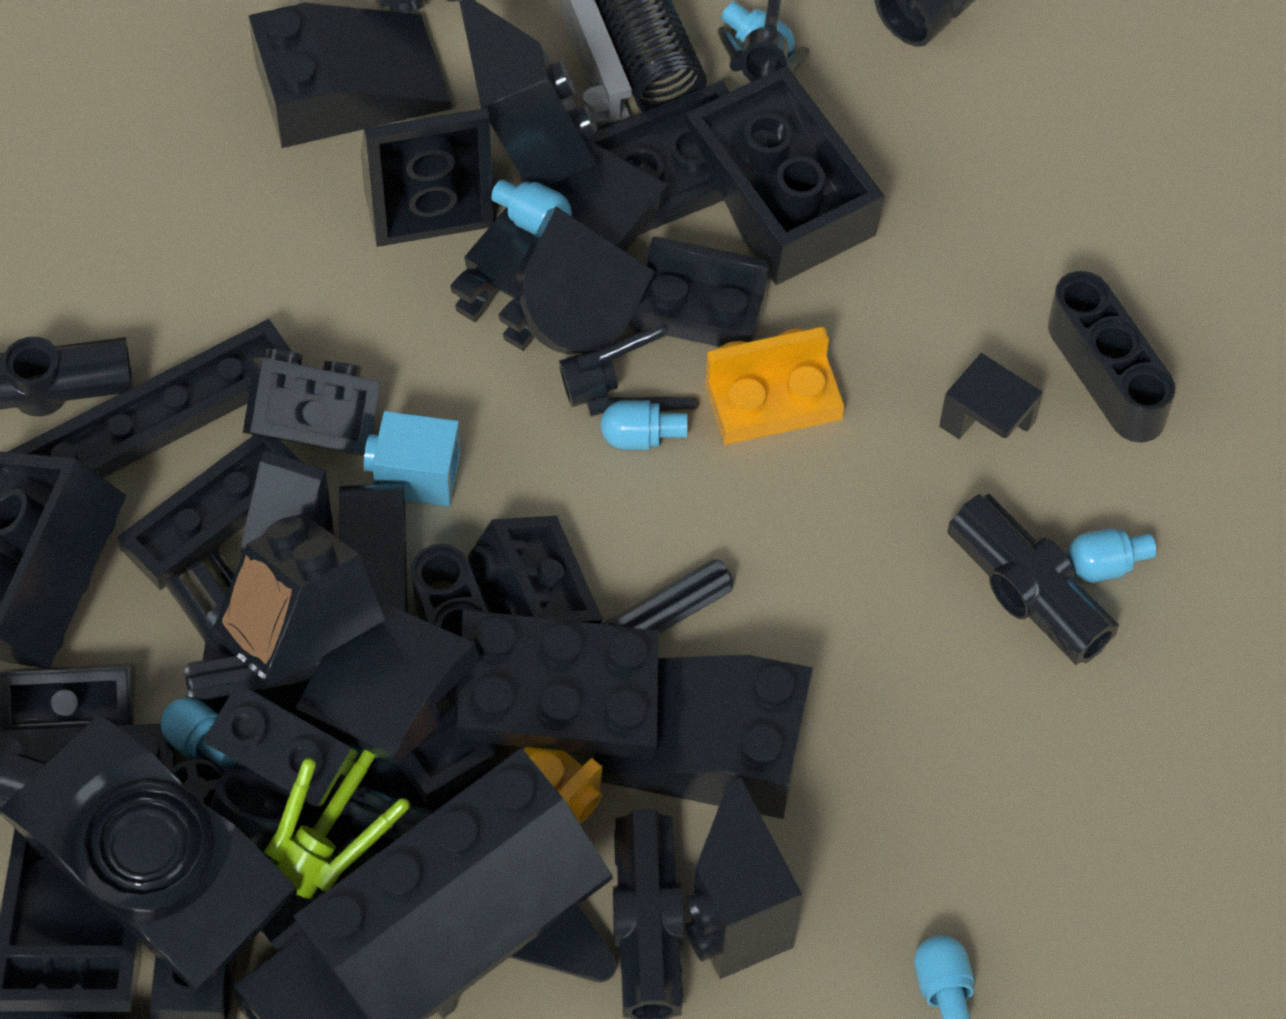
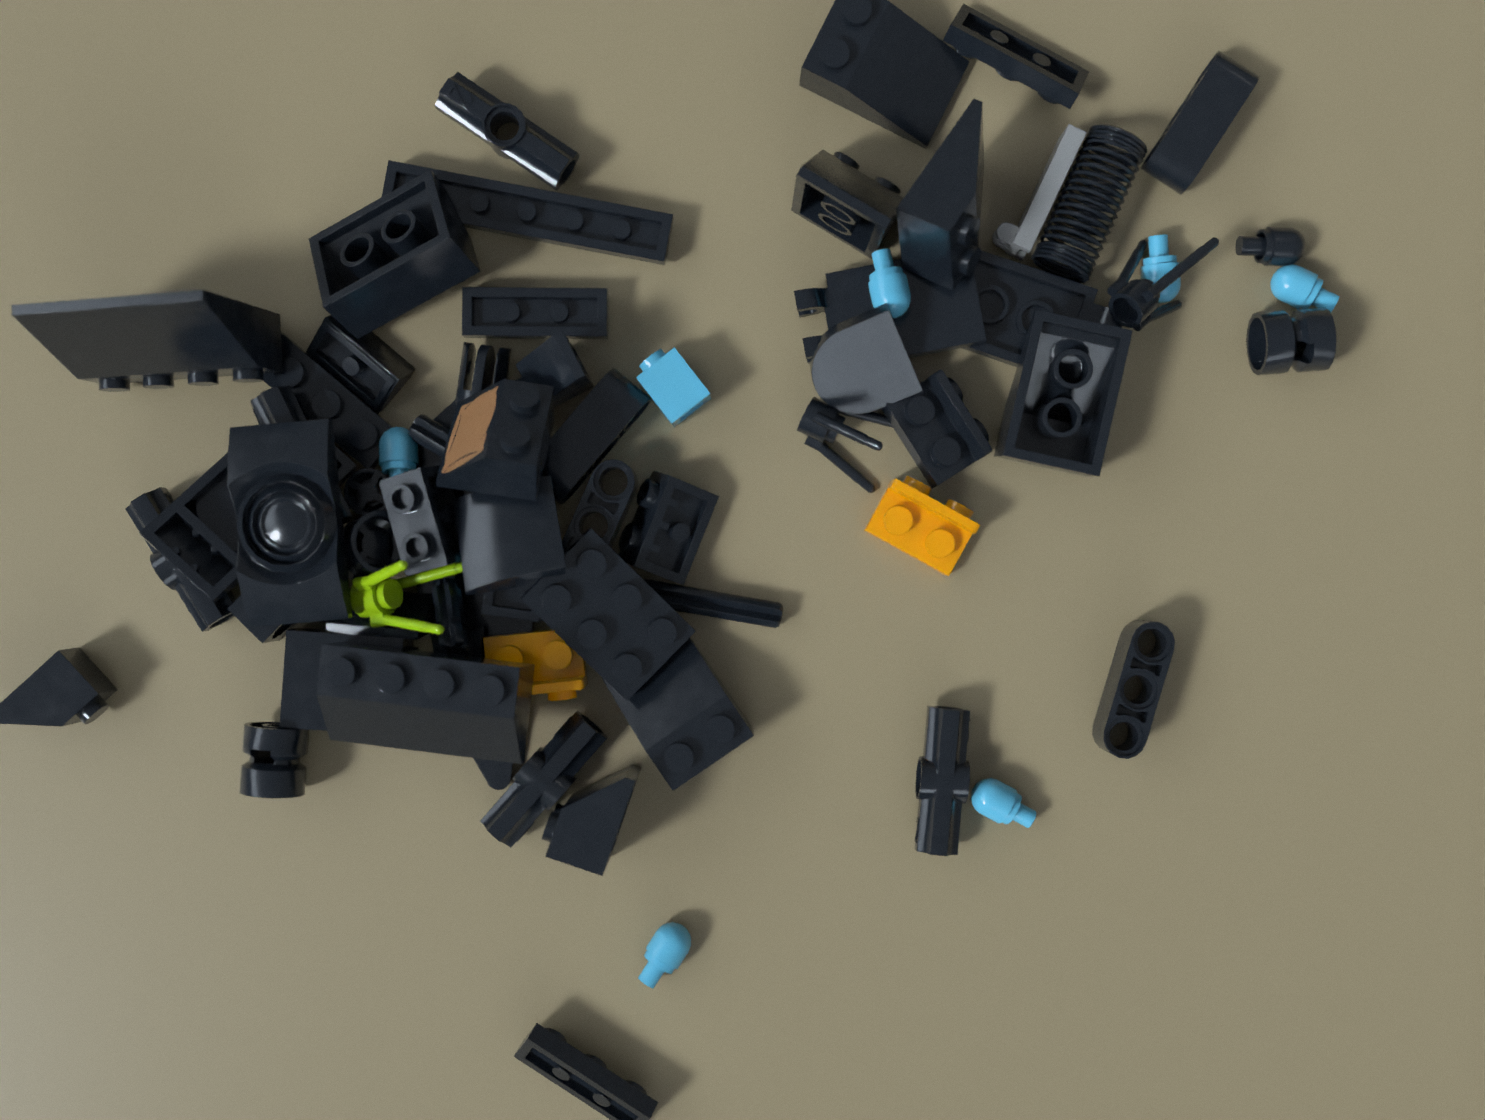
camera: 45 degrees right, 30 degrees up
(310, 404) = (642, 297): black bracket -> none
(640, 425) = (823, 479): medium azure cylinder -> none
(990, 397) = (1030, 656): black panel -> none

